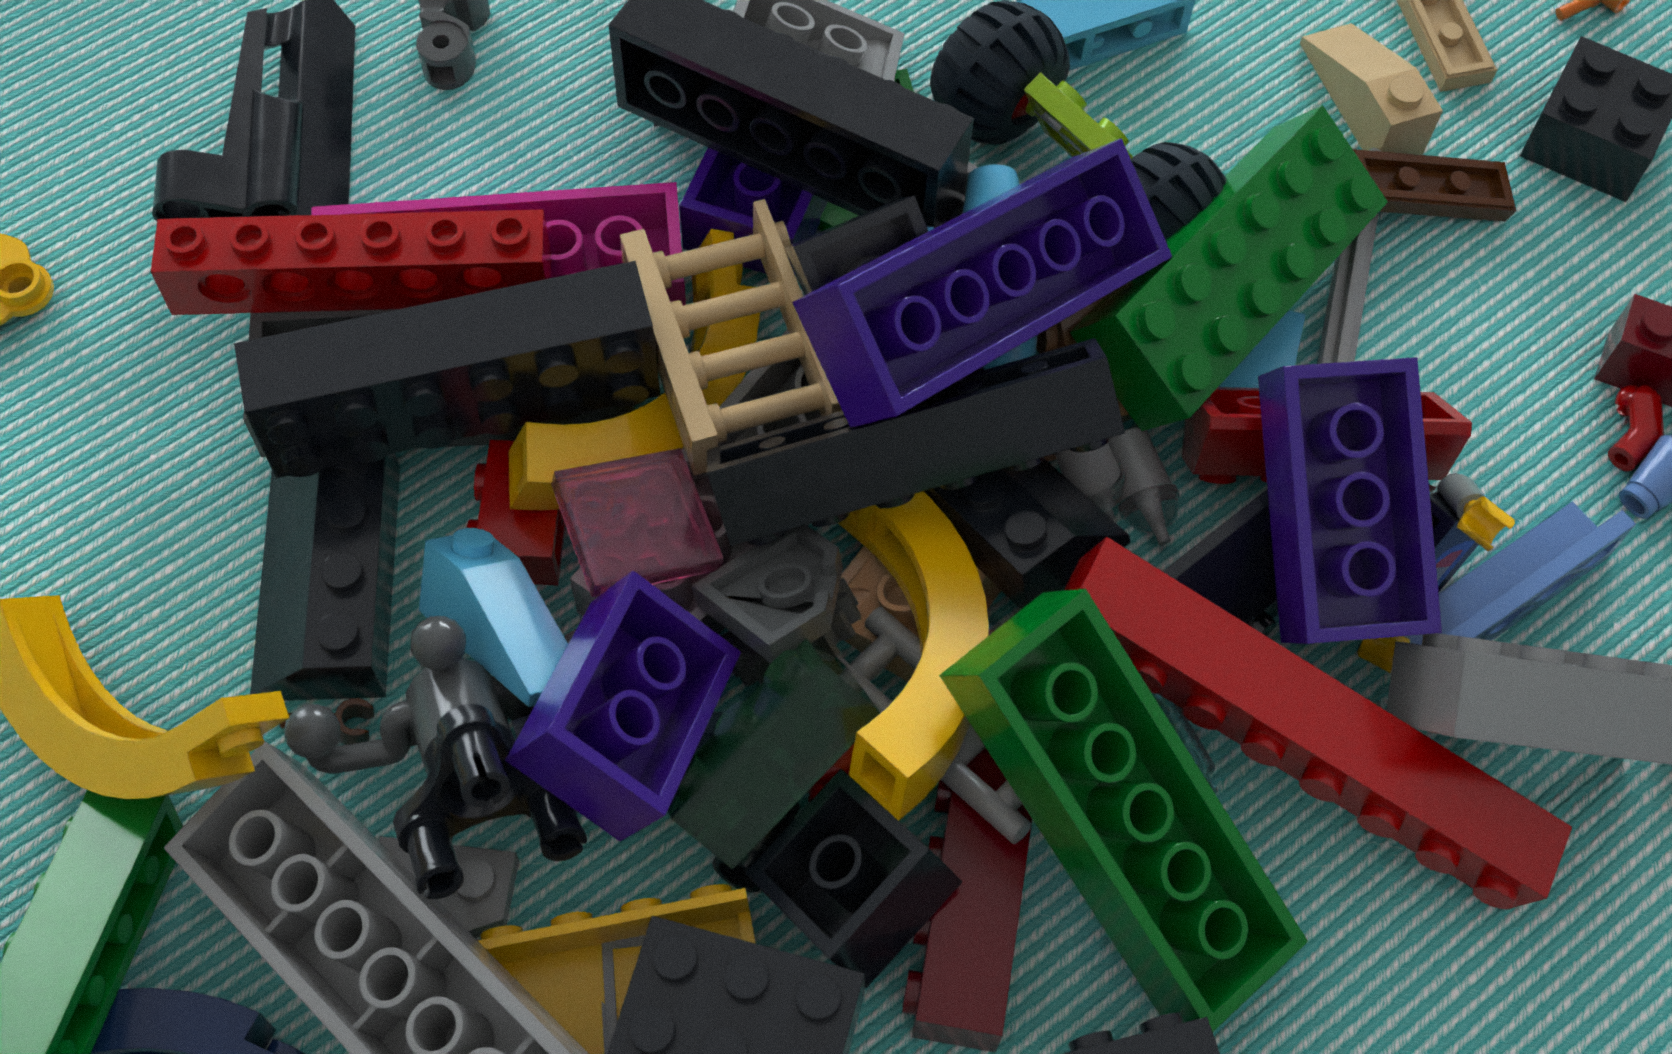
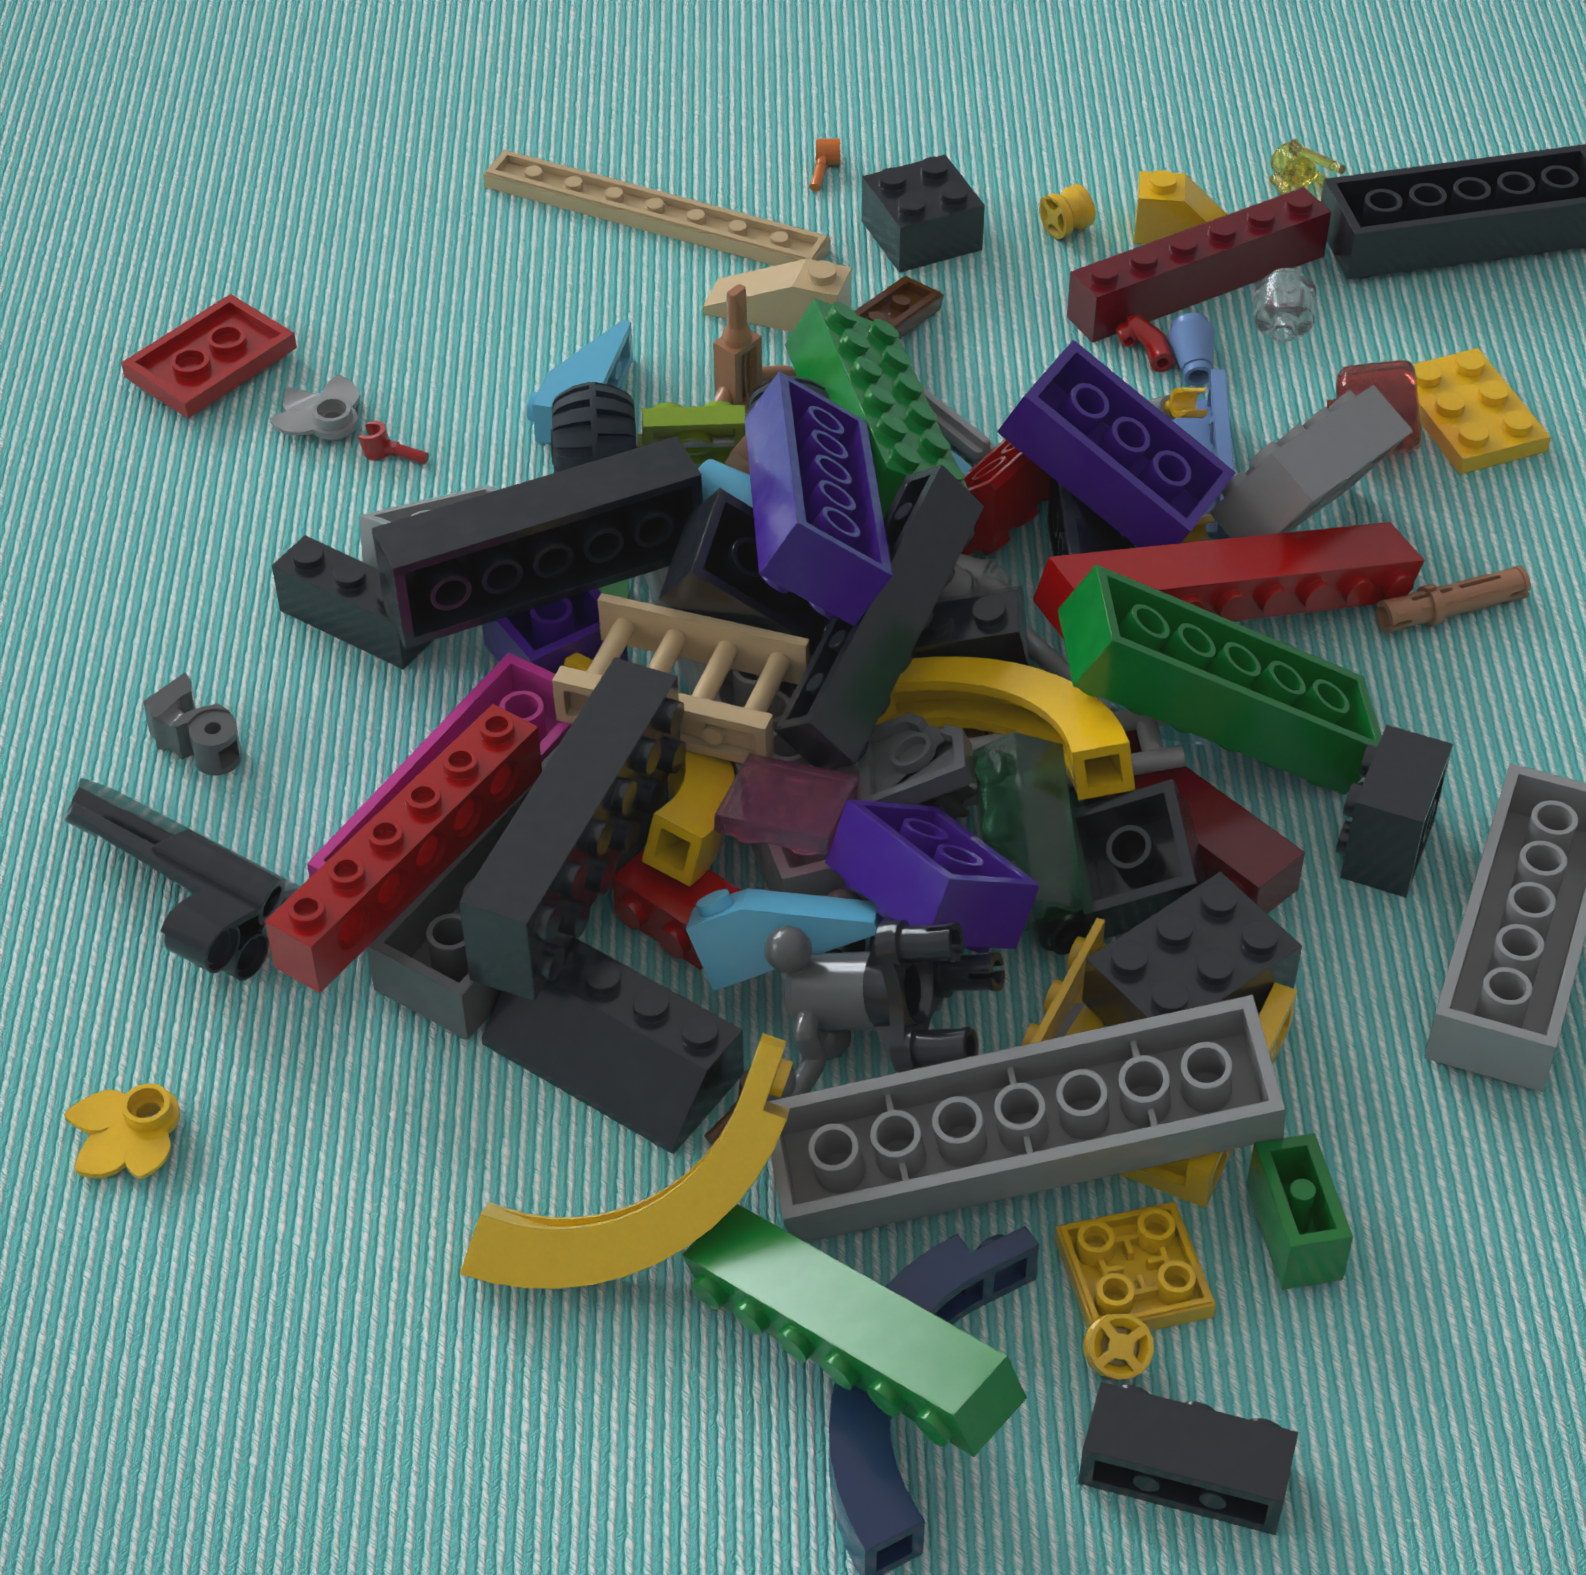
camera: 50 degrees left, 15 degrees down
(1221, 108) = (739, 355): none -> nougat piece
(1514, 946) = (1433, 604): none -> nougat pin

